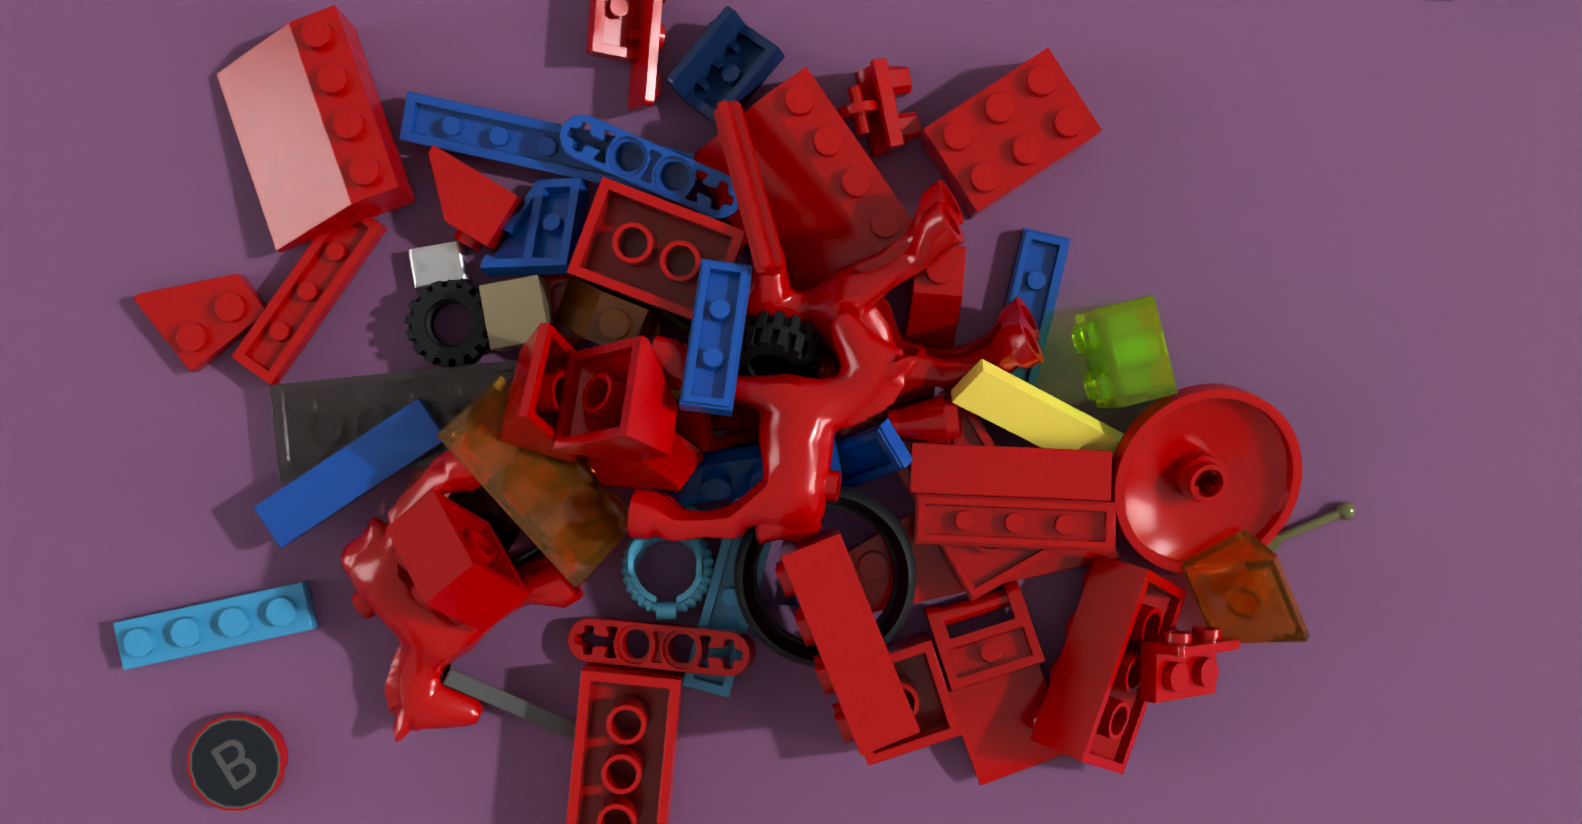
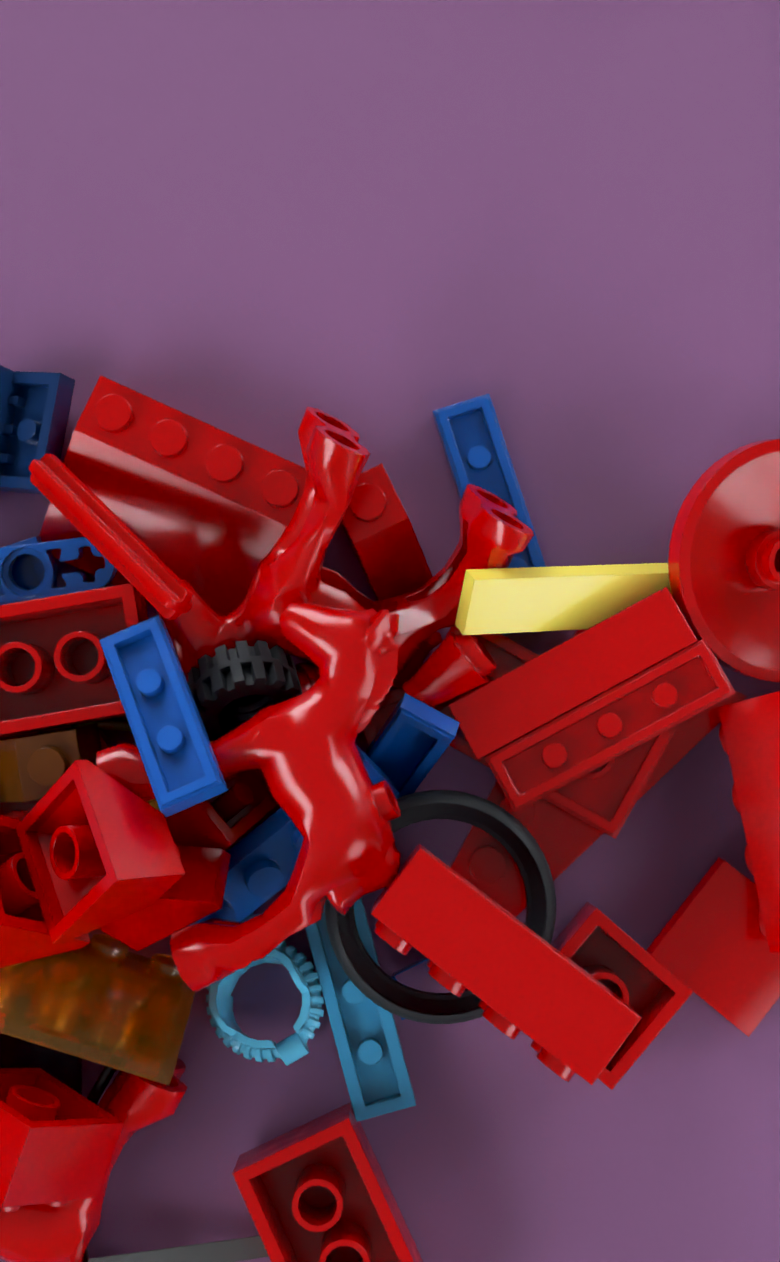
camera: 35 degrees left, 5 degrees down
(661, 641) = (310, 1097): red beam -> none
(875, 107) = (201, 378): red hips -> none
(990, 650) = (669, 879): red plate -> none
(1009, 133) = (357, 322): red brick -> none
(1124, 353) = (615, 476): clear neon green brick -> none

